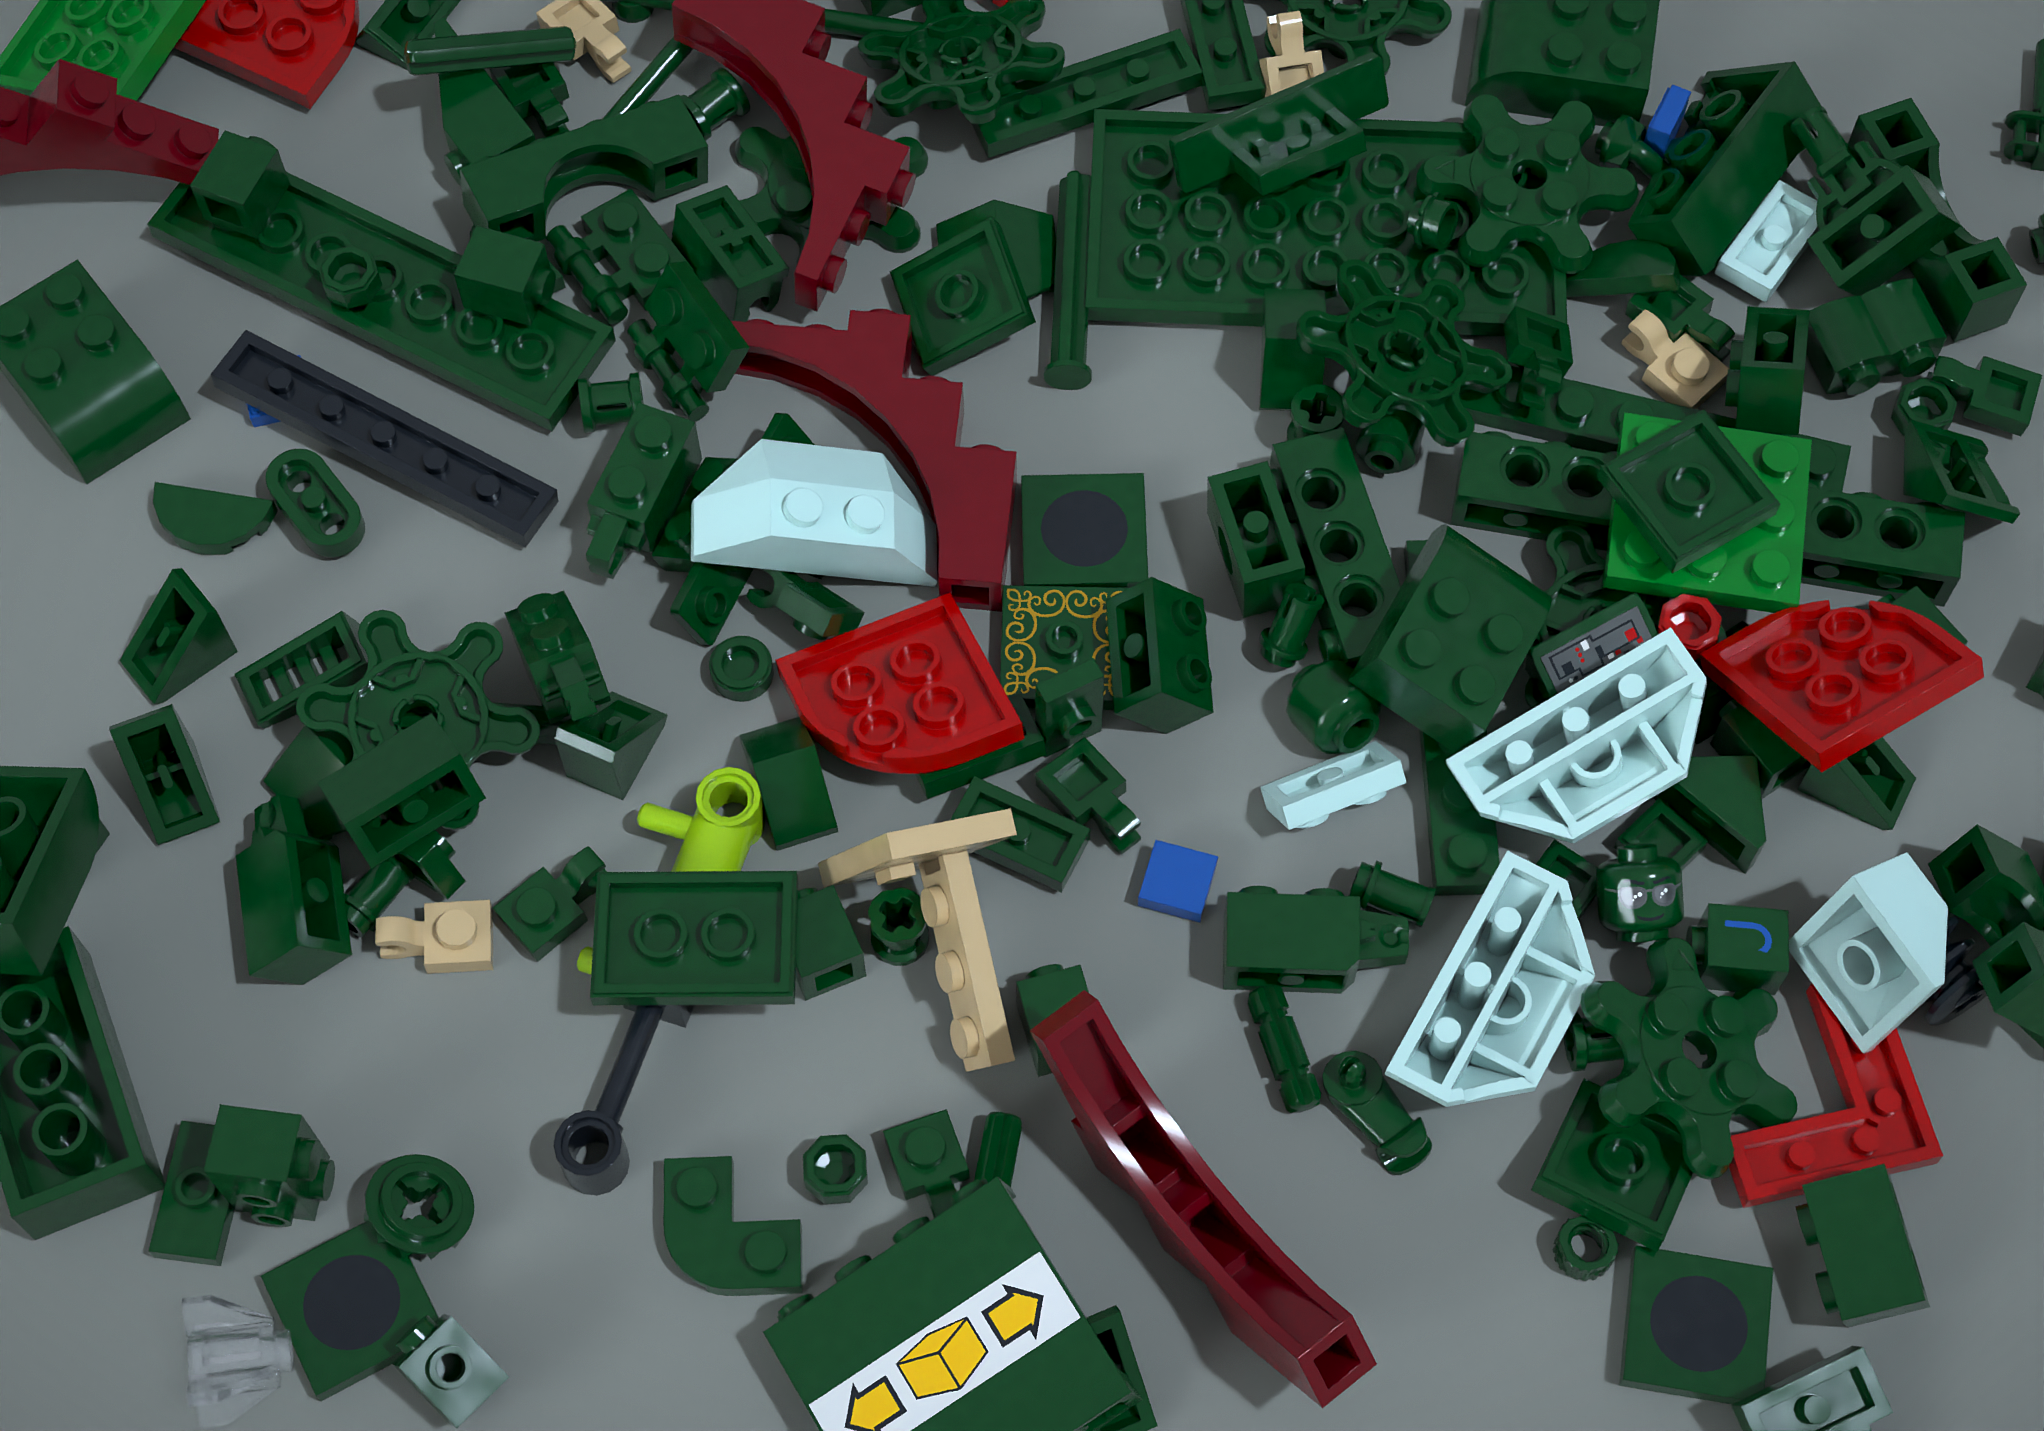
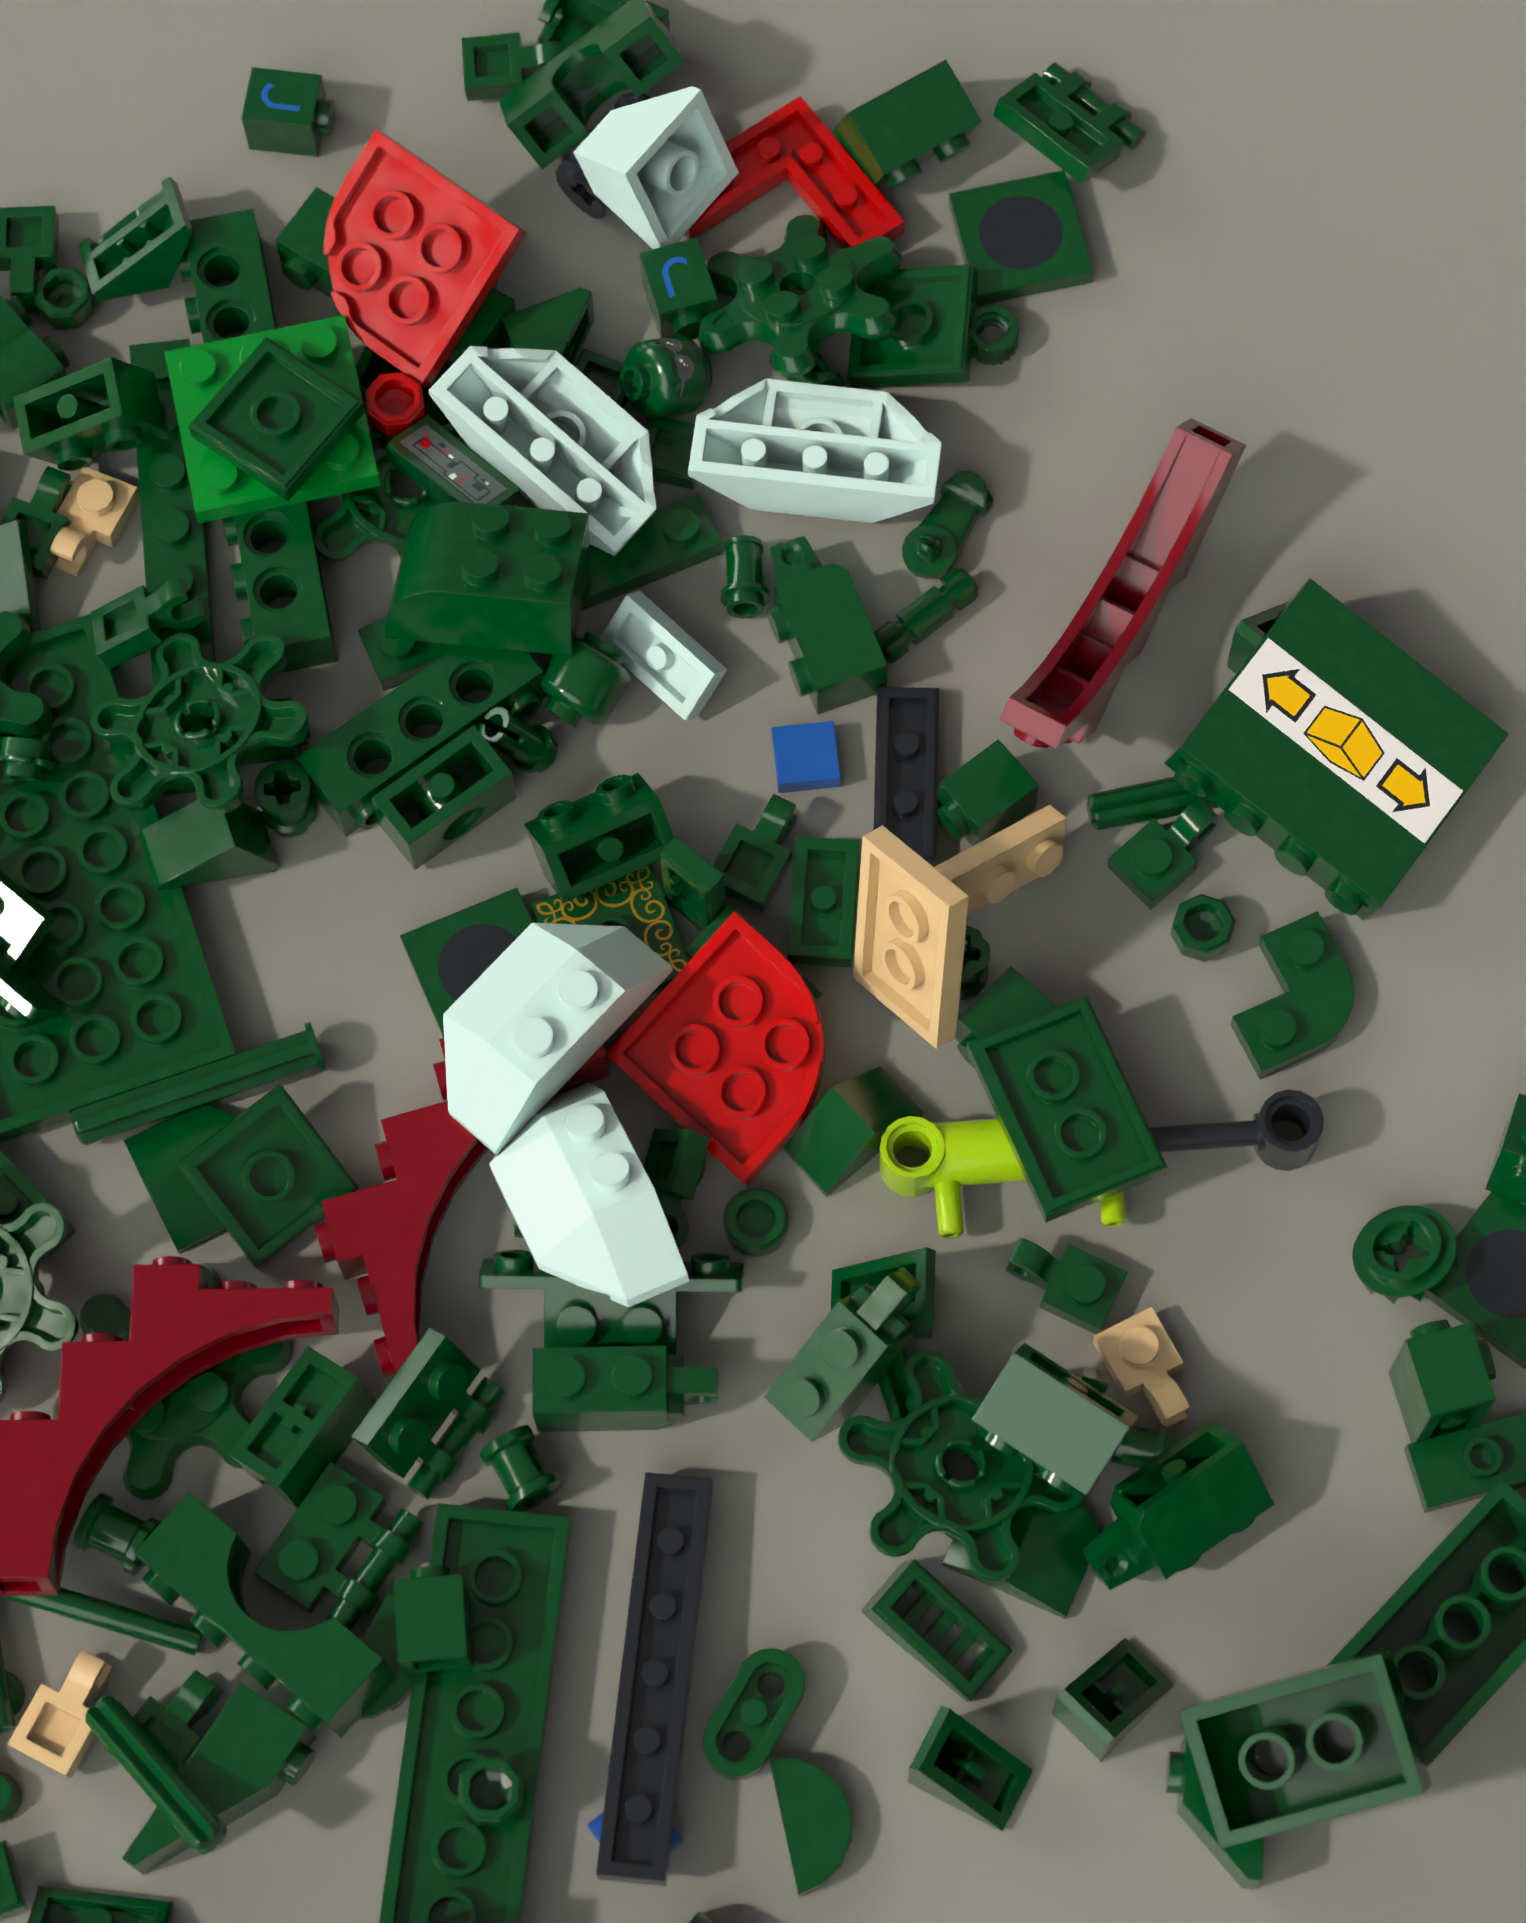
camera: 110 degrees left, 5 degrees up
(992, 531) = (539, 1021): none -> light aqua wedge
(1121, 964) = (907, 766): none -> black tile

